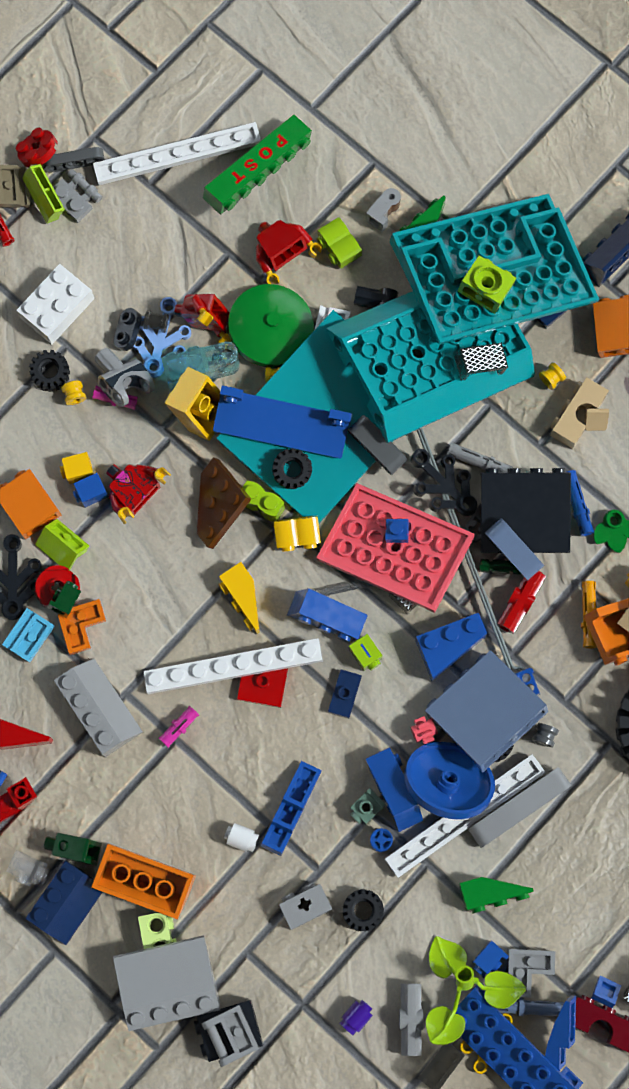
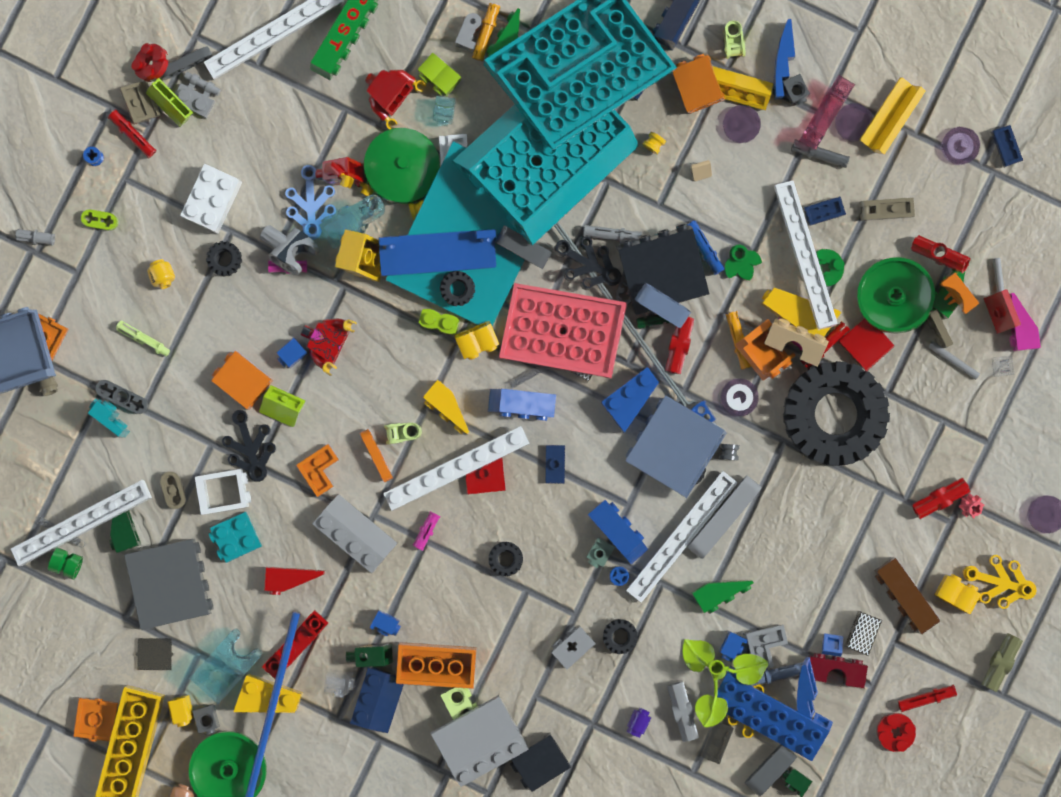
camera: 20 degrees left, 10 degrees up
(28, 635) = (278, 490): medium azure plate -> none
(47, 580) = (299, 450): red plate -> none
(65, 599) = (300, 453): dark green brick -> none
(73, 392) = (251, 272): yellow wheel -> none
(76, 467) = (274, 337): yellow brick -> none
(101, 817) = (385, 623): none -> blue brick
(127, 329) = (279, 202): black plate -> none
(148, 627) = (376, 455): none -> orange beam
(156, 321) = (302, 190): clear smoke bush -> none
(180, 610) = (400, 432): none -> yellowish green piece
(219, 502) = (404, 333): reddish brown plate -> none
(237, 1031) = (549, 765): light grey plate -> none
(241, 837) = (504, 607): white brick -> none
(244, 783) = (517, 559): none -> black tyre
(291, 808) = (538, 571): blue slope -> none
(333, 280) = (444, 110): none -> clear light blue brick
(366, 653) = (563, 426): lime brick -> none
(372, 298) = (484, 116): black piece -> none
(397, 531) = (560, 317): blue plate -> none
(407, 206) = (486, 31): none -> light orange pin
(424, 730) = (629, 476): coral gear -> none
(448, 781) = (660, 514): blue dish -> none
(480, 360) = (591, 153): clear smoke panel -> none
(486, 273) = (573, 75): lime brick -> none
(573, 678) = (739, 397): none -> clear purple tile
(587, 396) = (688, 152): tan arch -> none

